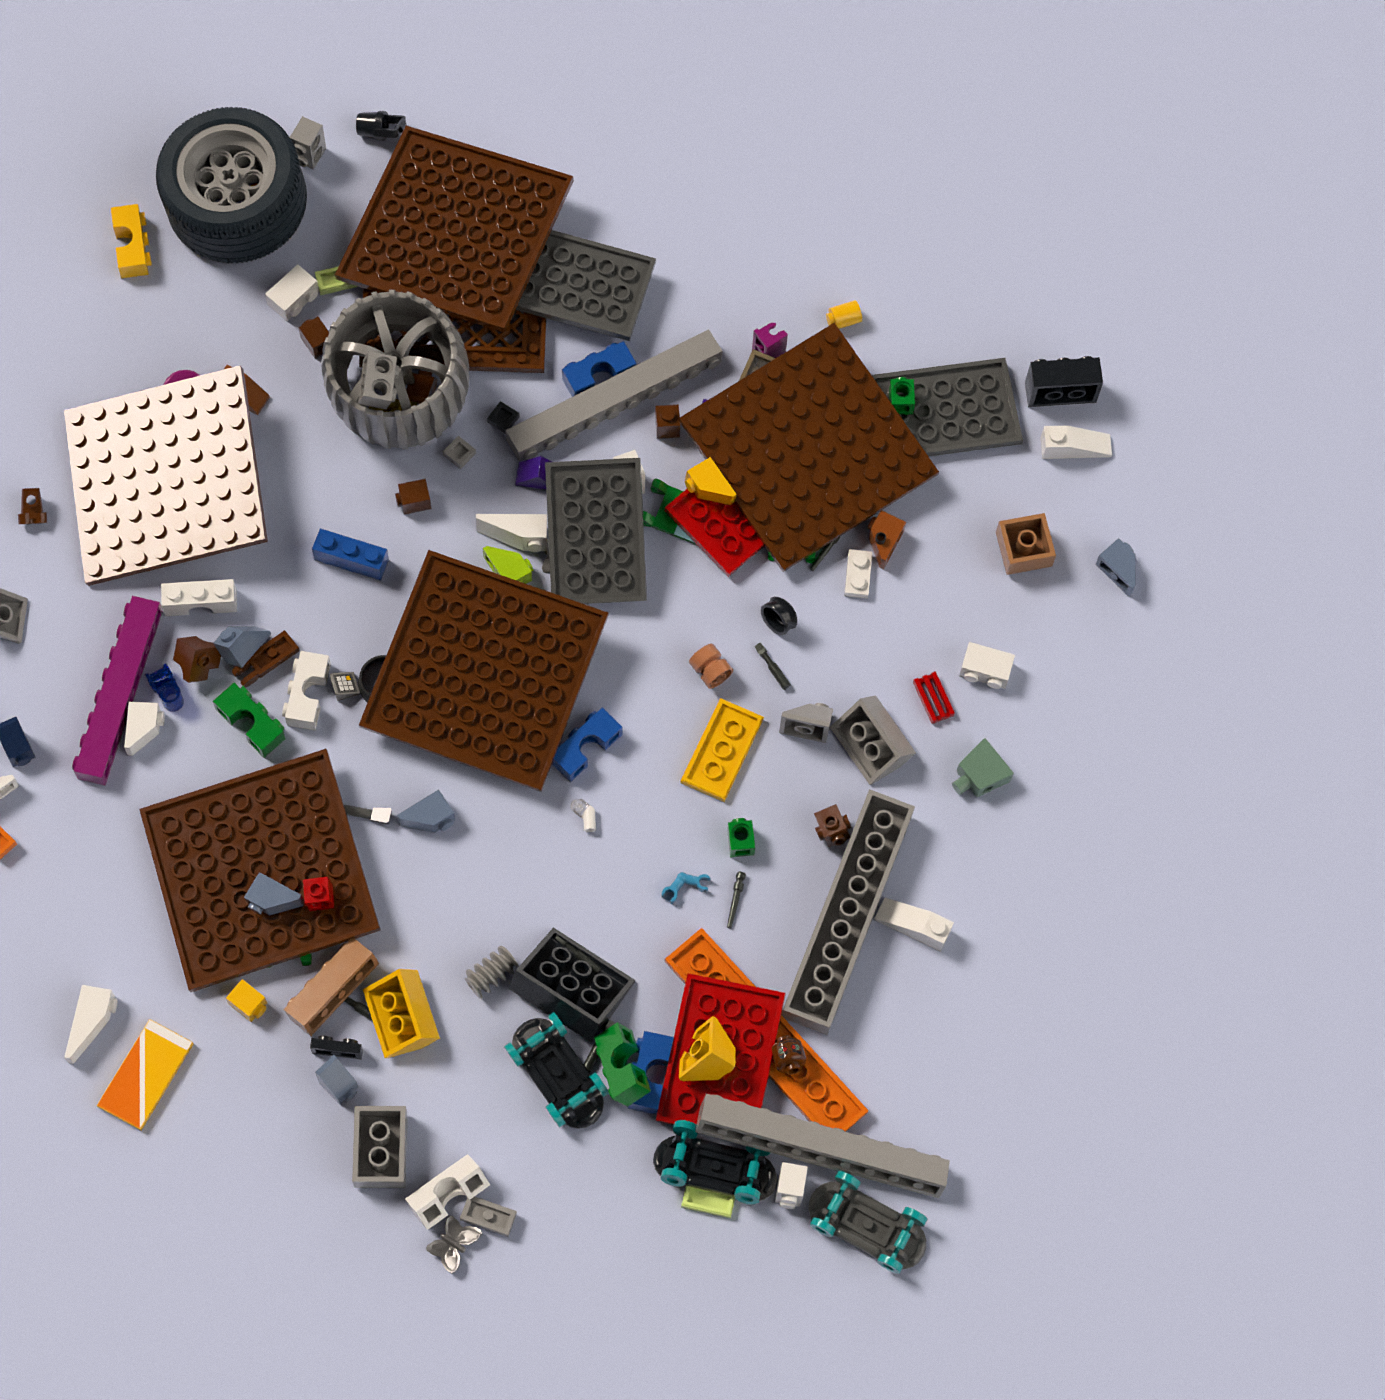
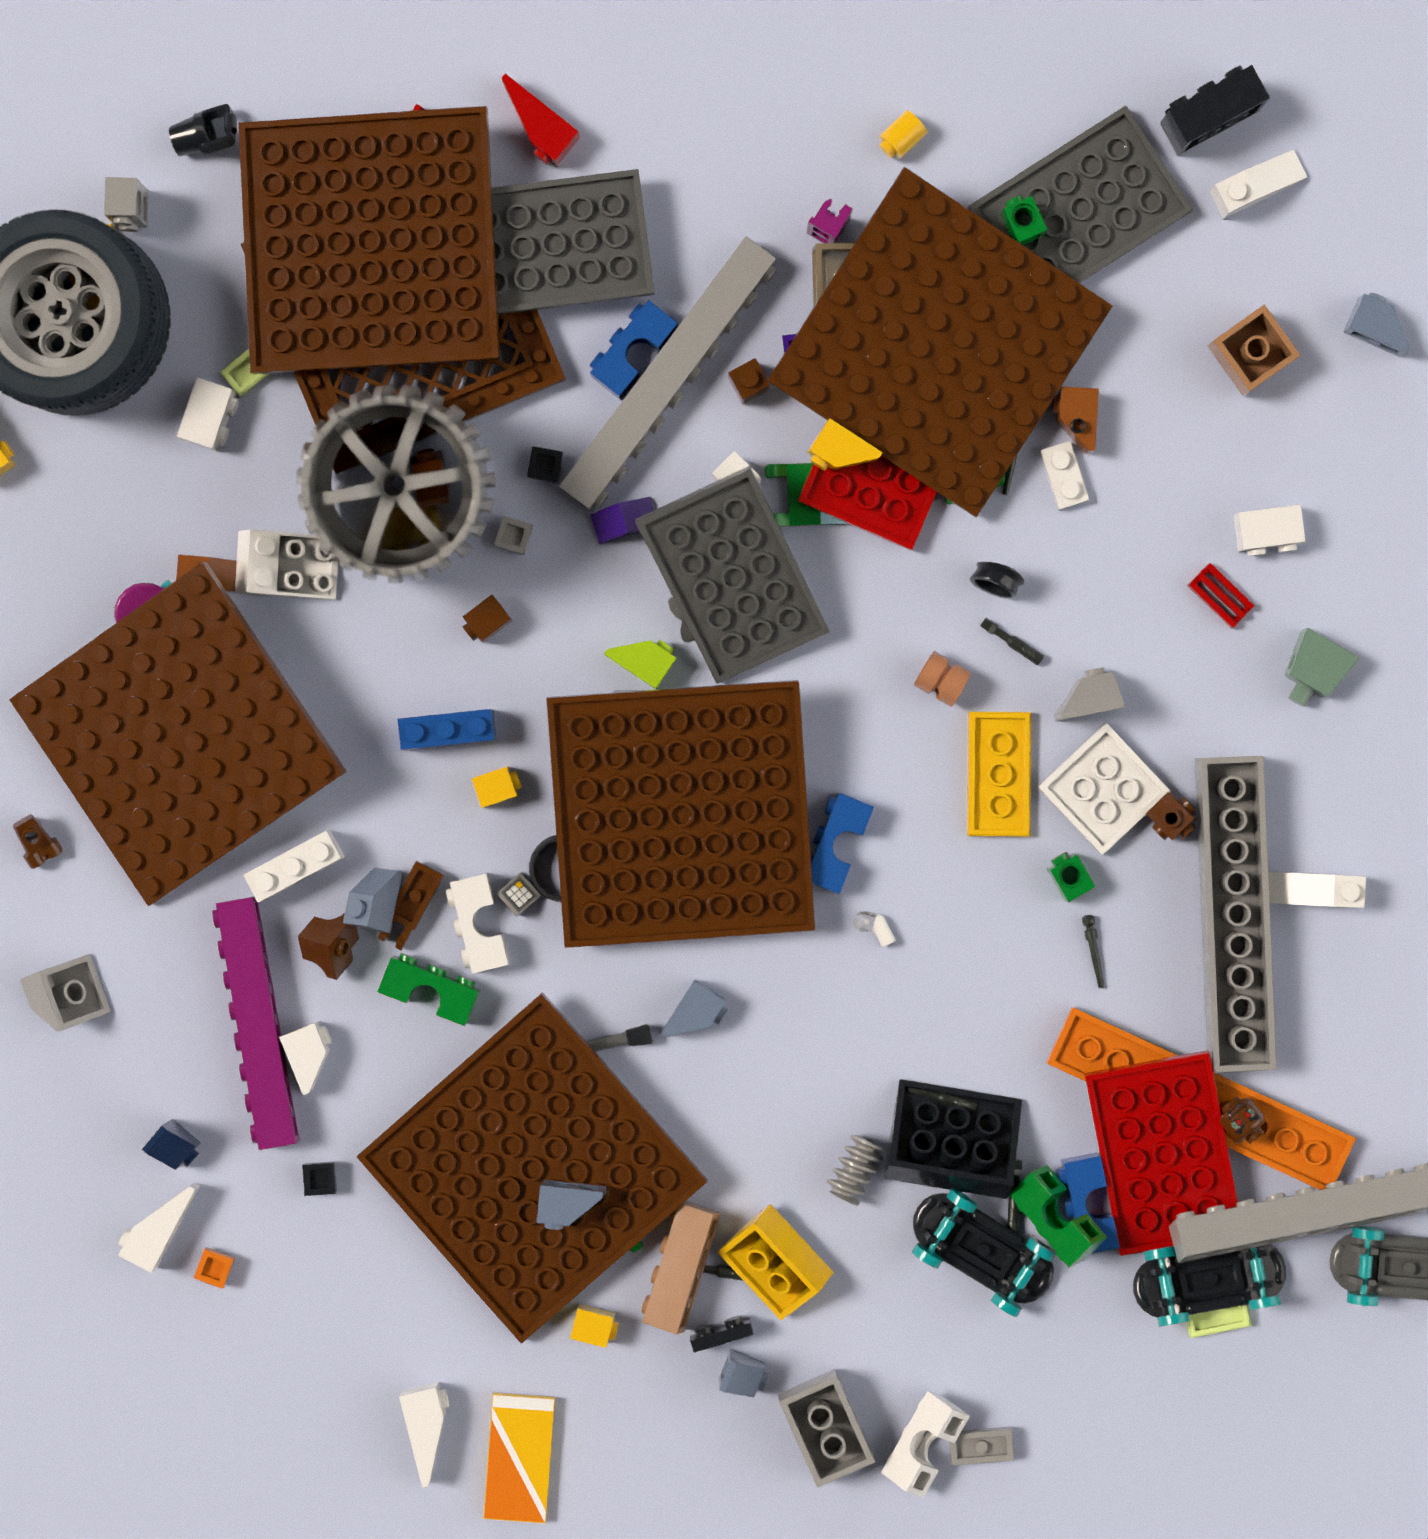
camera: 20 degrees left, 20 degrees up
(105, 814) = (319, 1178): none -> black plate
(163, 685) = (309, 992): clear blue piece -> none
(295, 406) = (284, 566): none -> white slope
(313, 335) = (265, 460): reddish brown brick -> none
(318, 893) = (620, 1178): red brick -> none
(365, 606) = (496, 786): none -> yellow brick
(372, 379) = (385, 534): light grey brick -> none
(453, 1241) = (954, 1493): flat silver piece -> none
(521, 531) = (636, 607): white slope -> none
(607, 216) = (545, 129): none -> red slope
(687, 879) = (1022, 954): dark azure arm -> none
(709, 1055) = (1152, 1164): yellow slope -> none
(790, 788) = (1103, 788): none -> white plate
(791, 1185) = (1308, 1268): white brick -> none
(872, 739) = (1173, 684): light grey slope -> none

